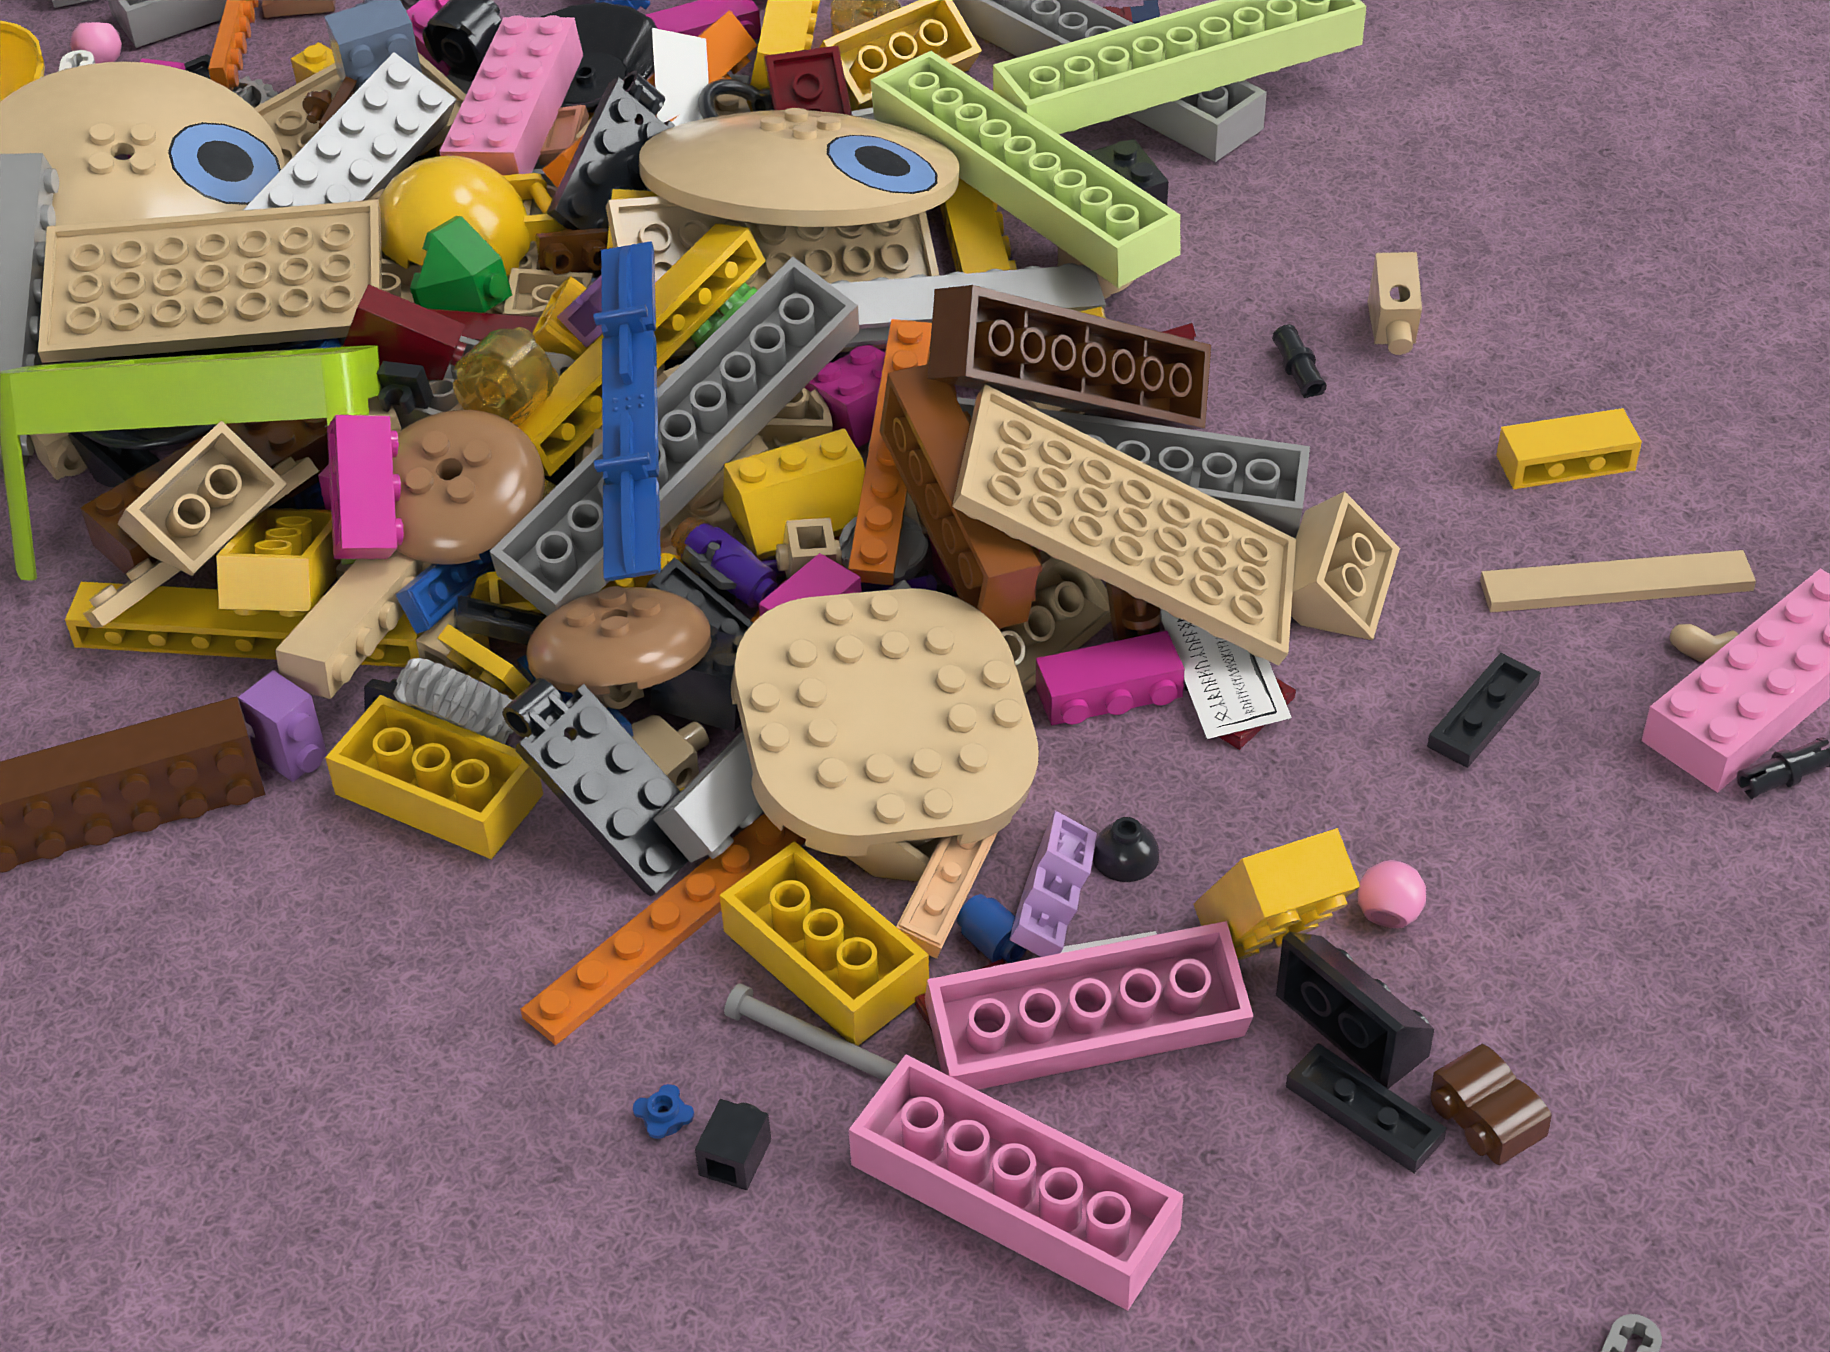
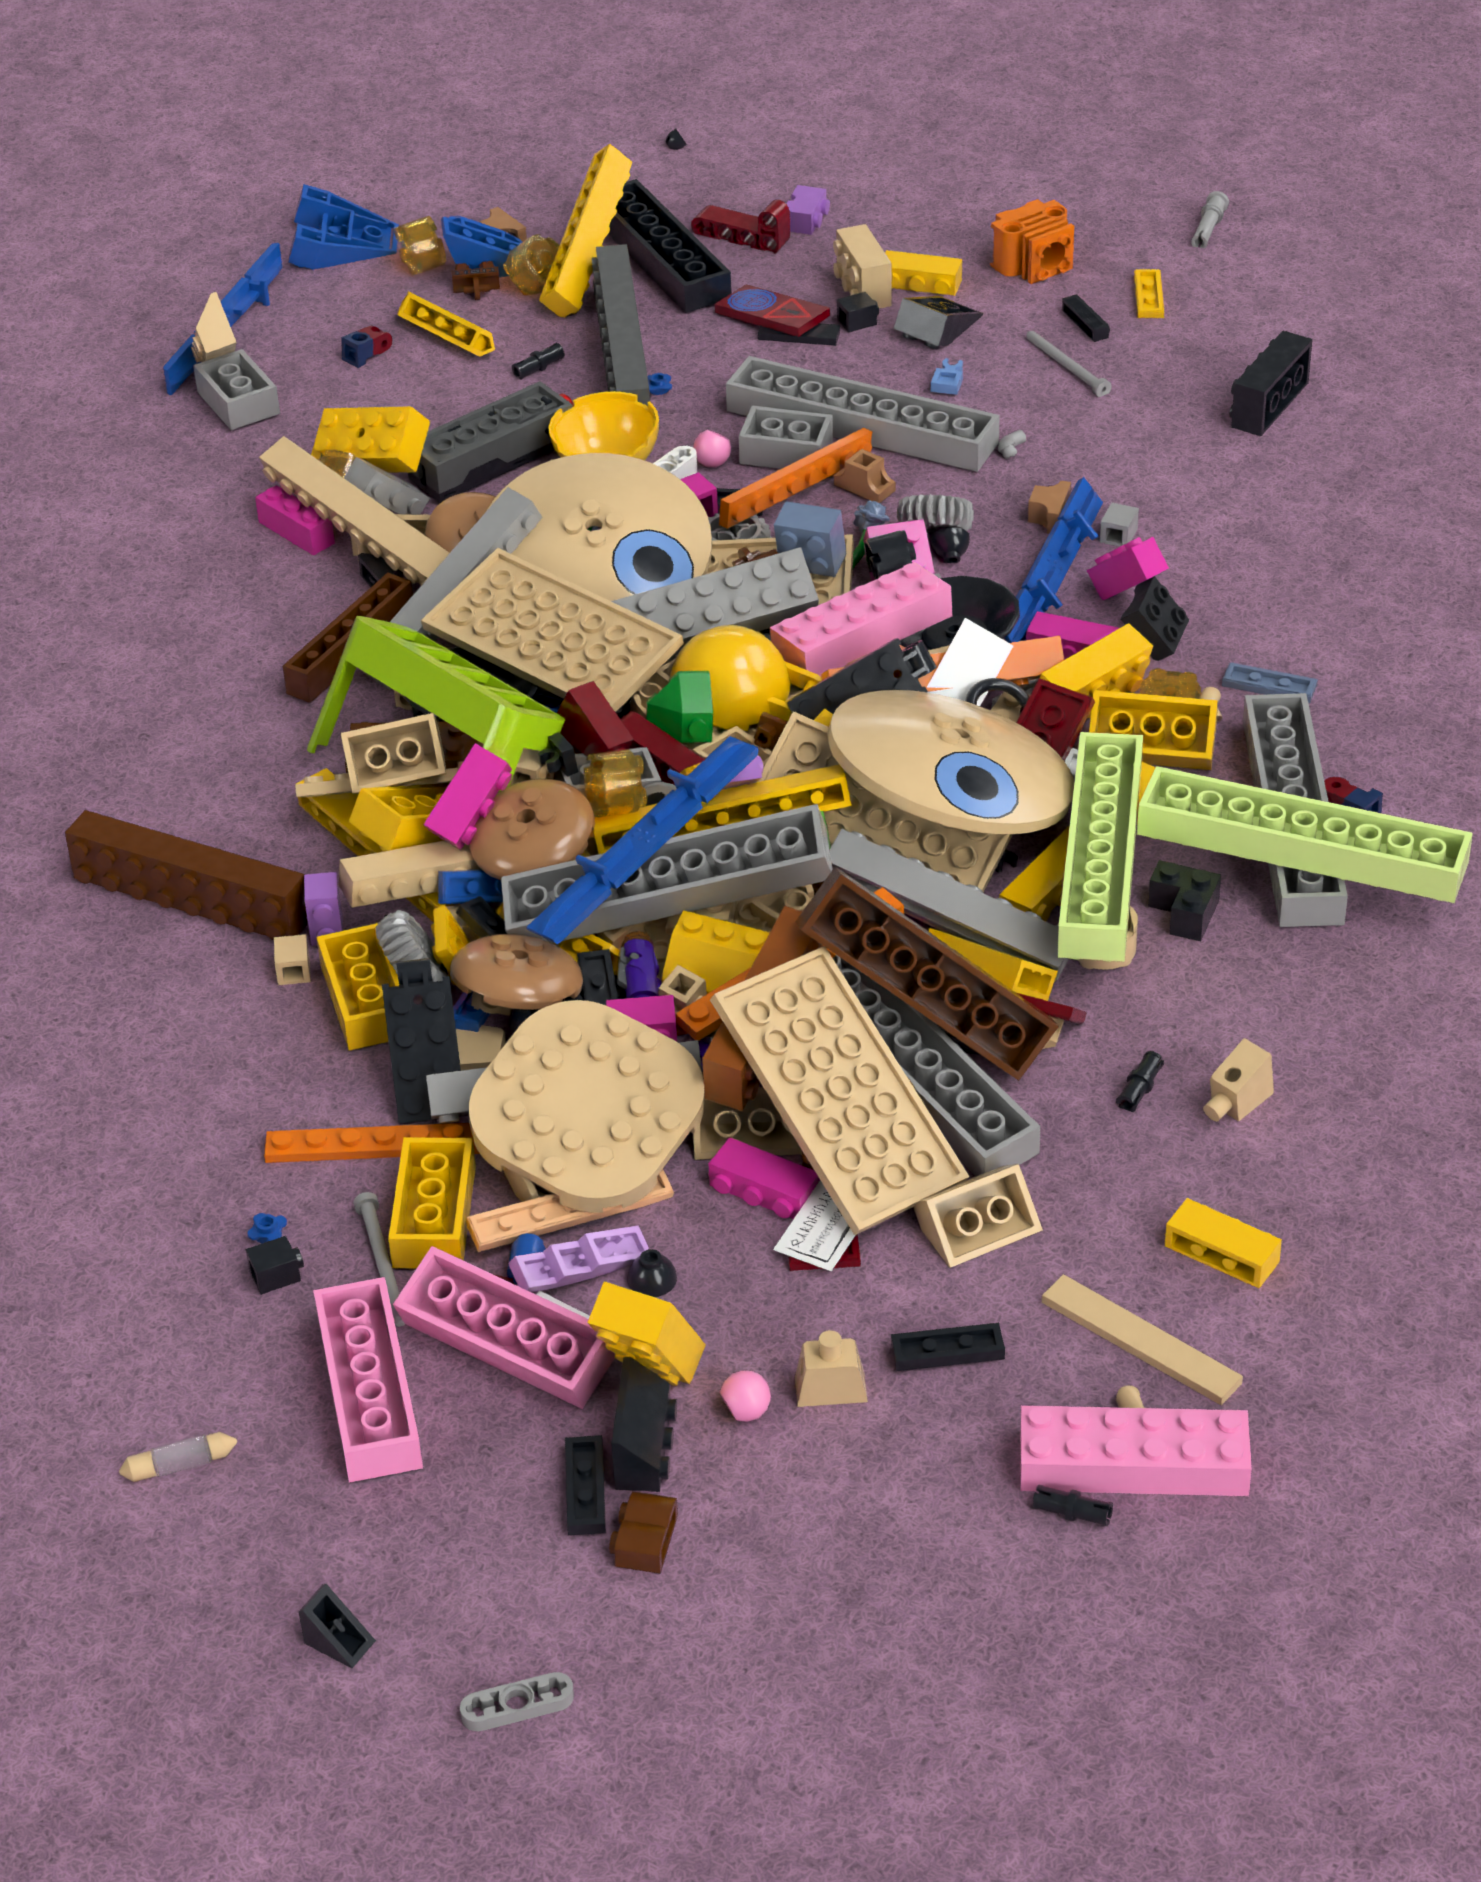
camera: 45 degrees right, 5 degrees down
(303, 807) = (292, 959): none -> tan brick
(1449, 799) = (830, 1372): none -> tan torso

